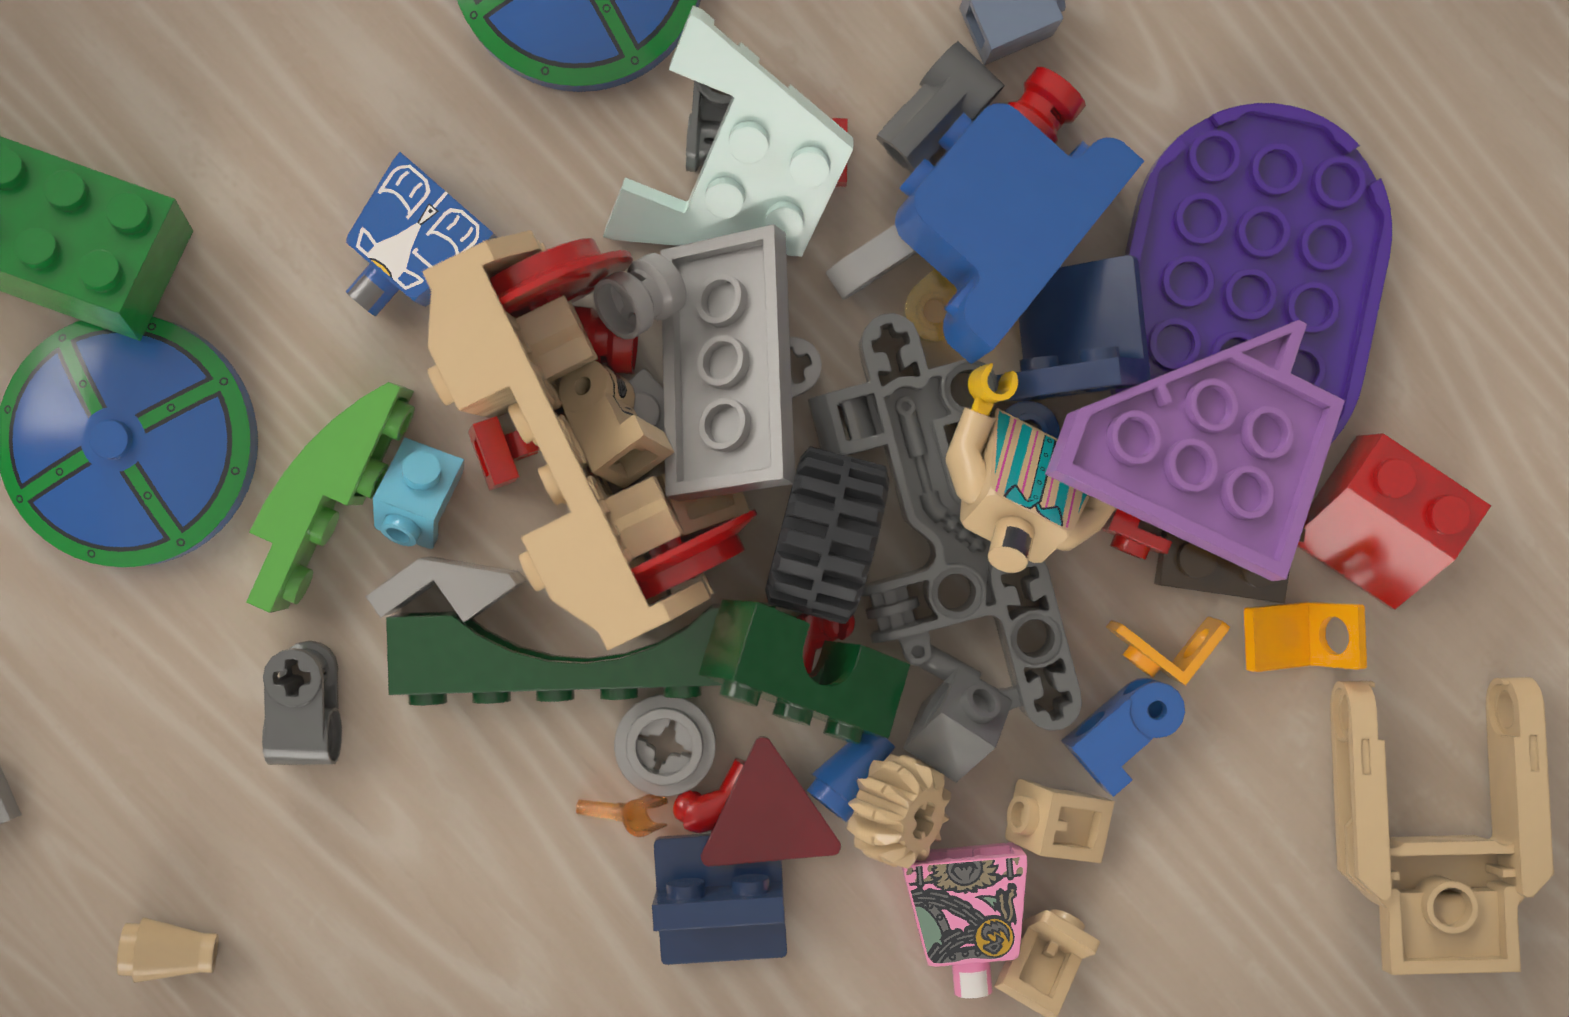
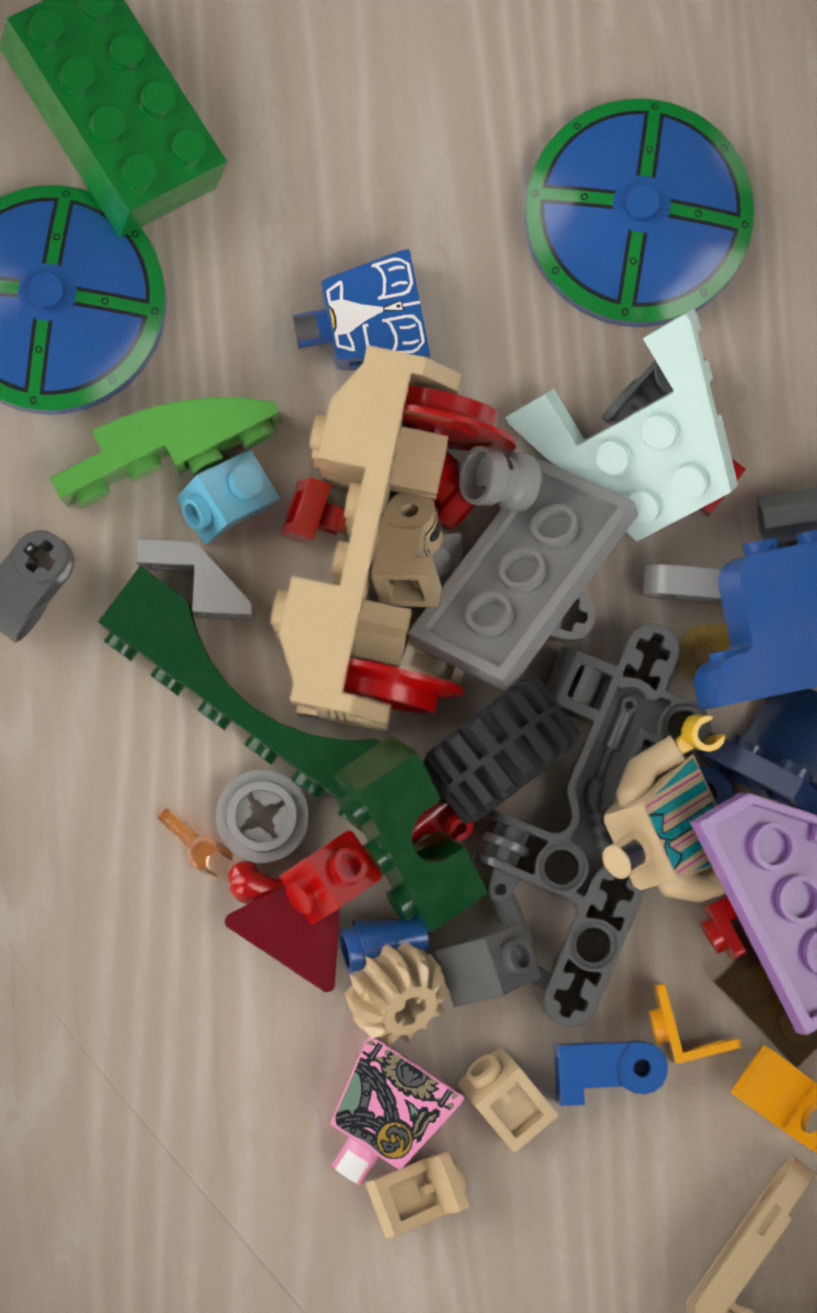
camera: 40 degrees right, 5 degrees down
(715, 909) = (206, 964): dark blue bracket -> none
(765, 761) = (330, 877): none -> red bracket

